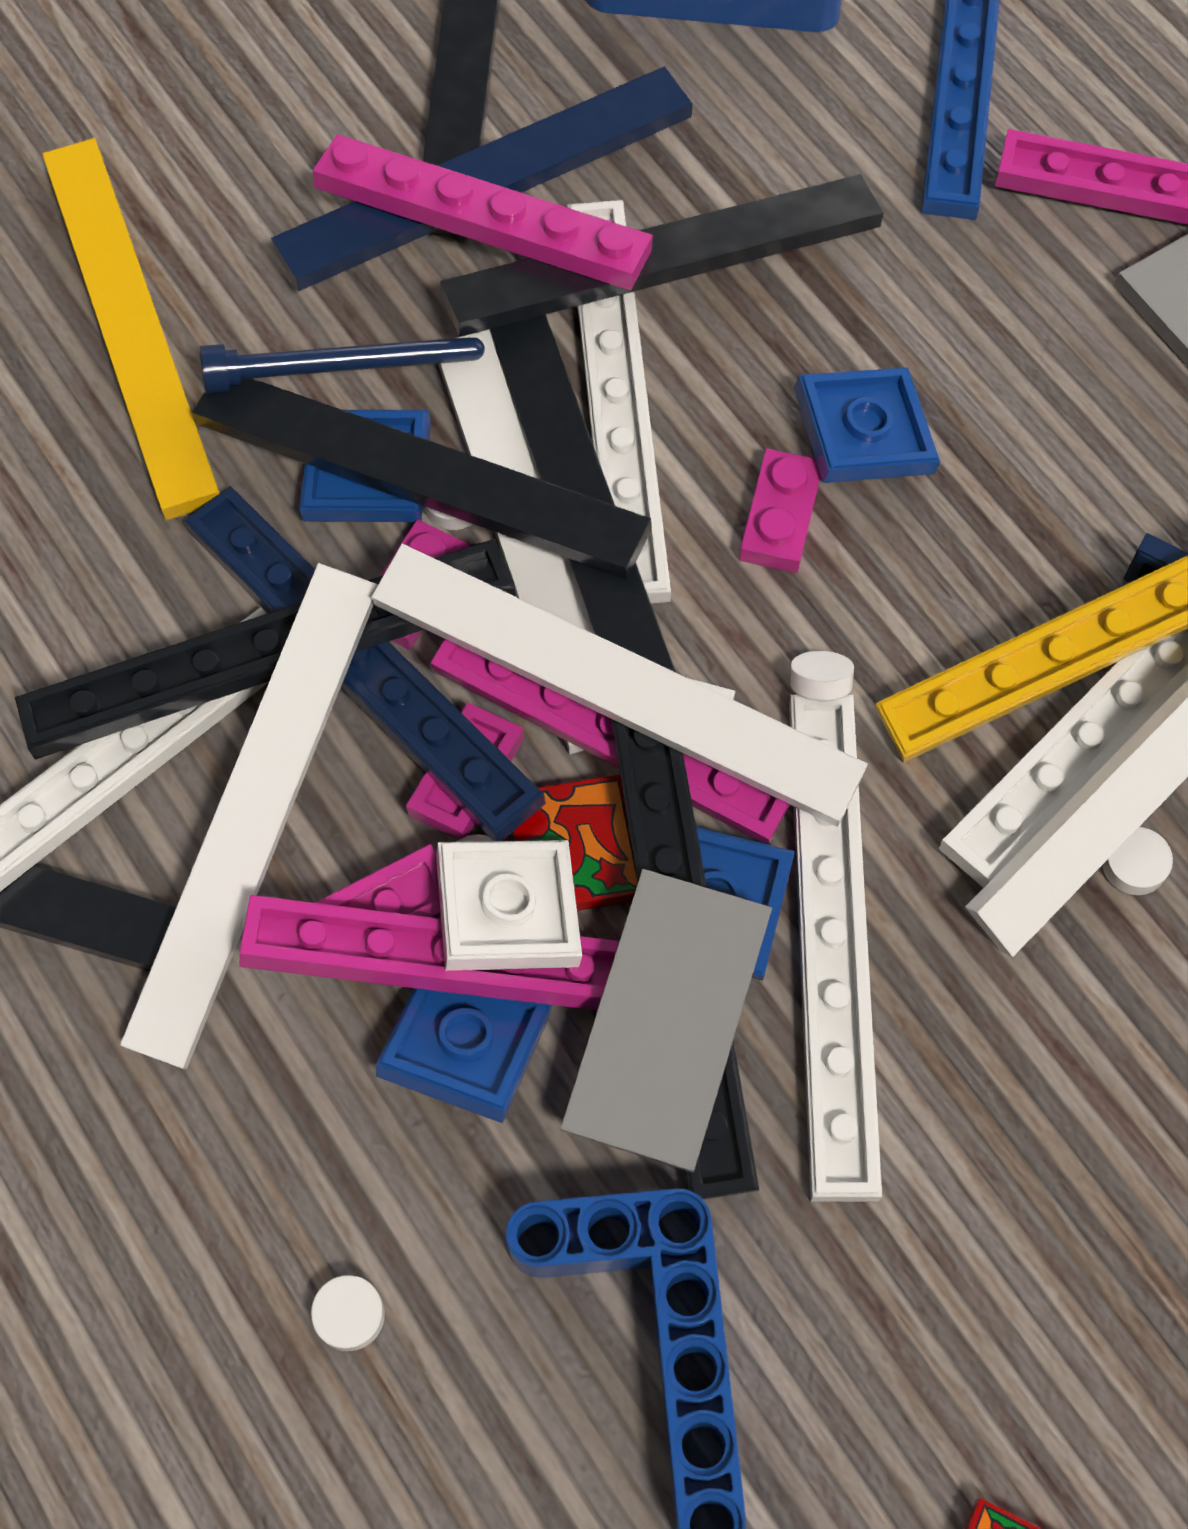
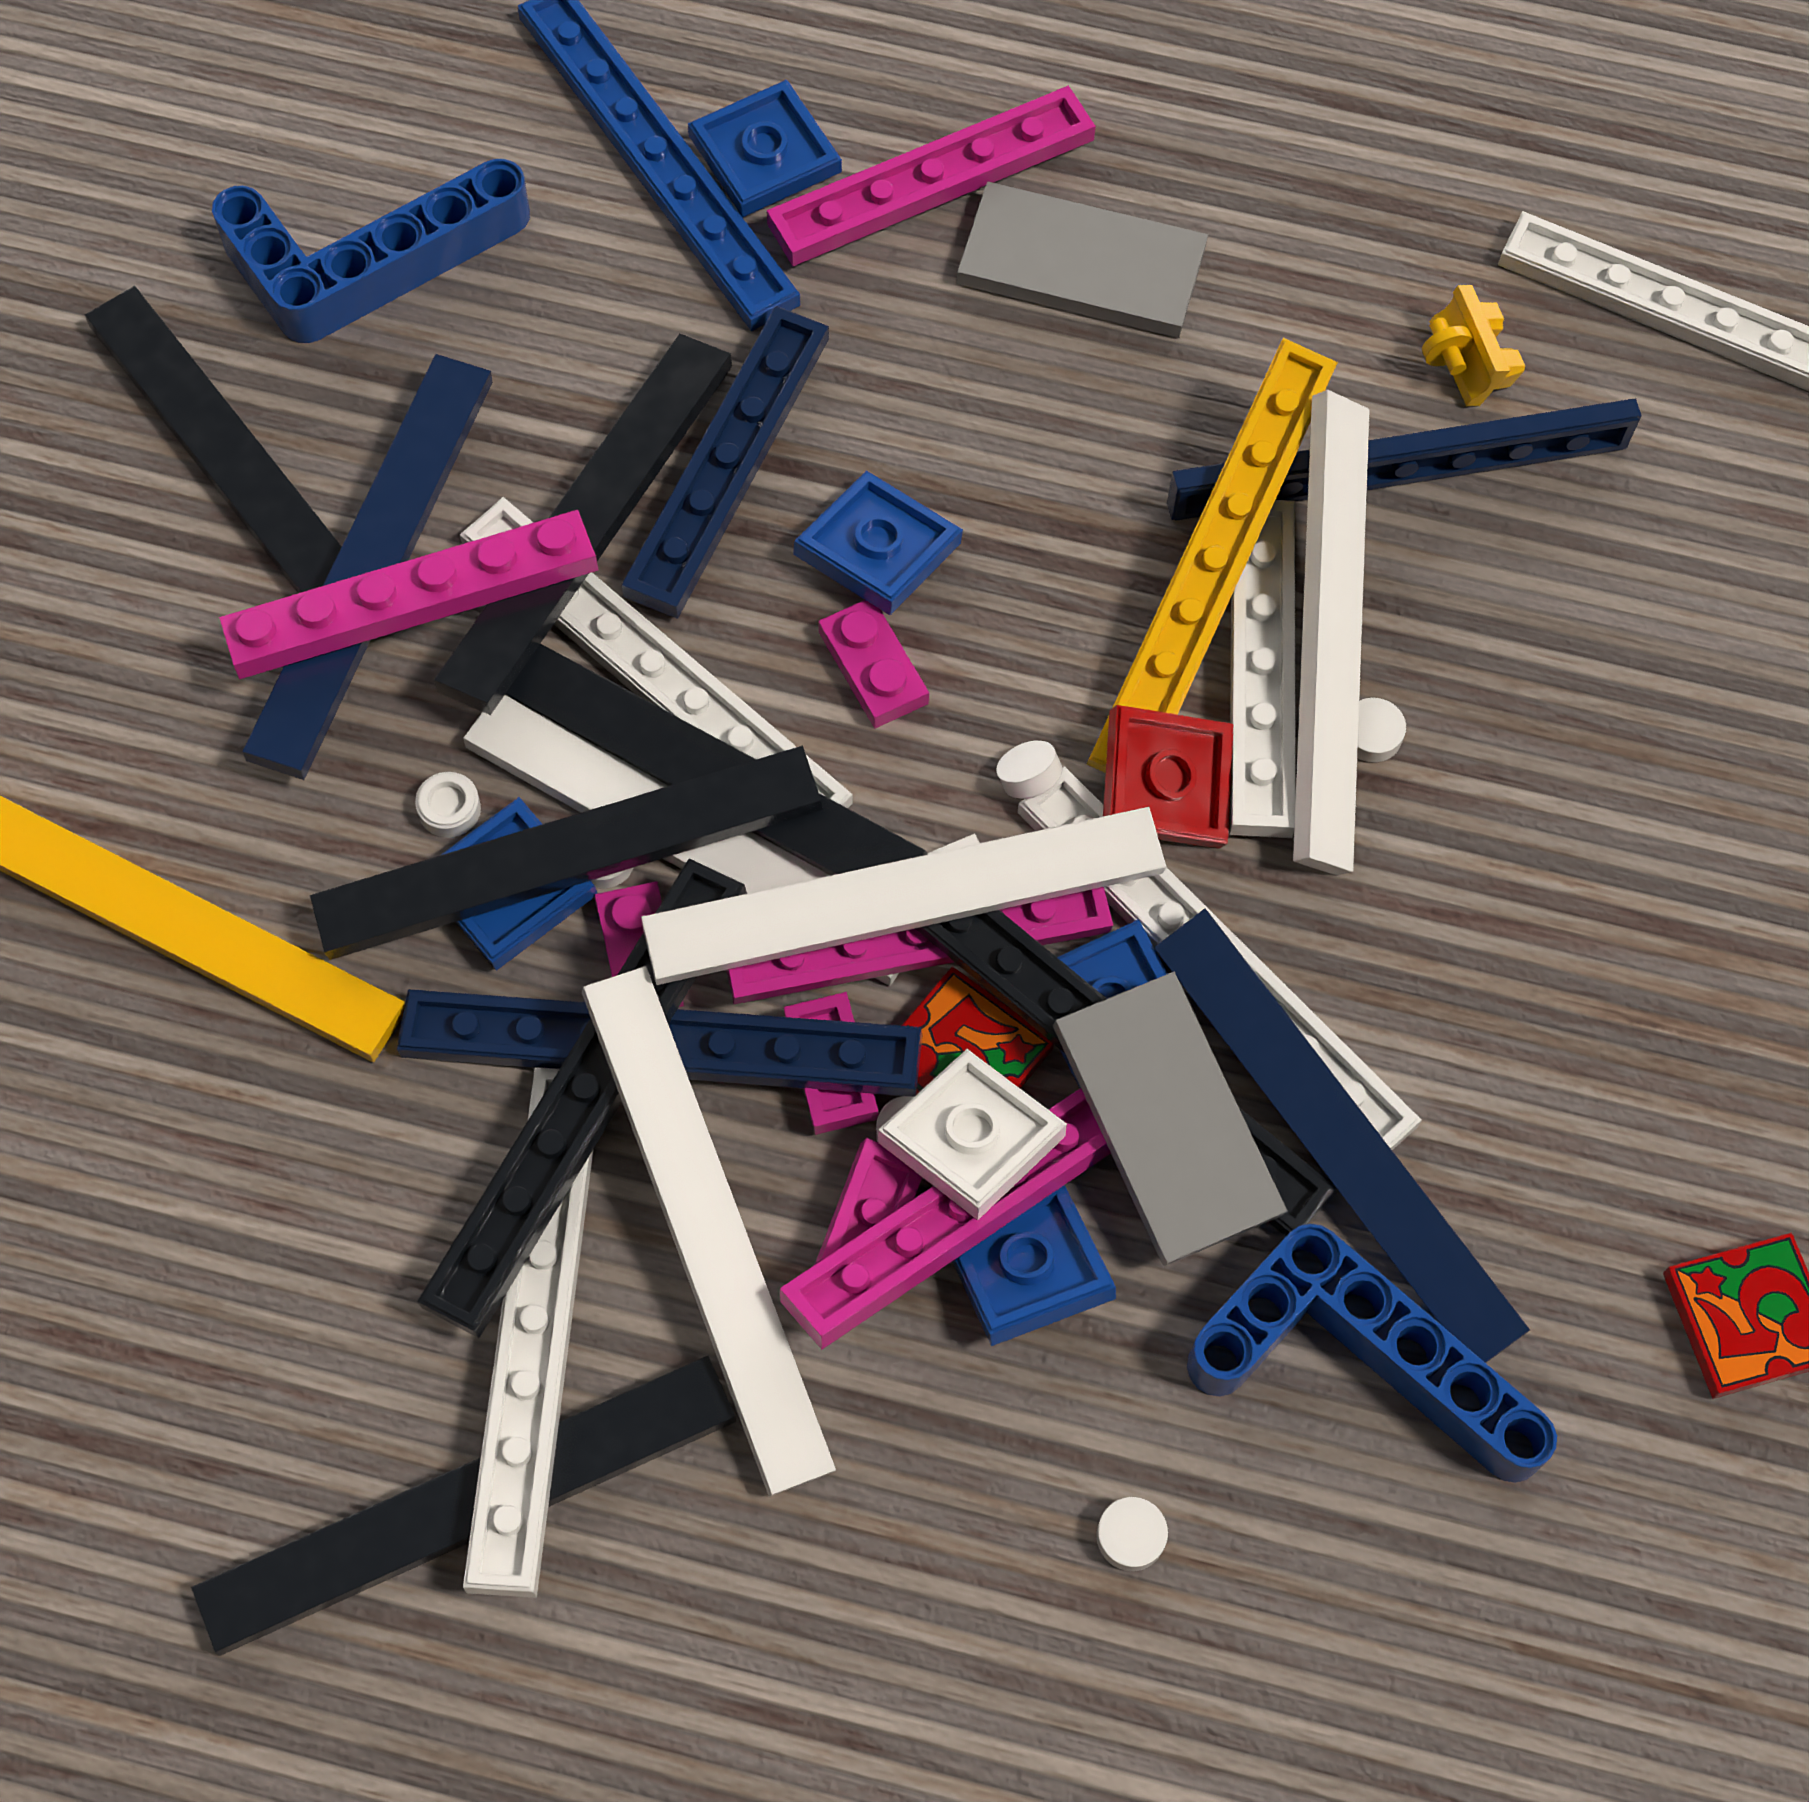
camera: 45 degrees left, 0 degrees up
(227, 368) = (324, 893): dark blue piece -> none
(383, 387) = (448, 804): none -> white tile
(796, 1165) = (1341, 1138): none -> dark blue tile
(807, 286) = (725, 462): none -> dark blue plate
(927, 763) = (1173, 767): none -> red tile
(1052, 87) = (764, 148): none -> blue plate

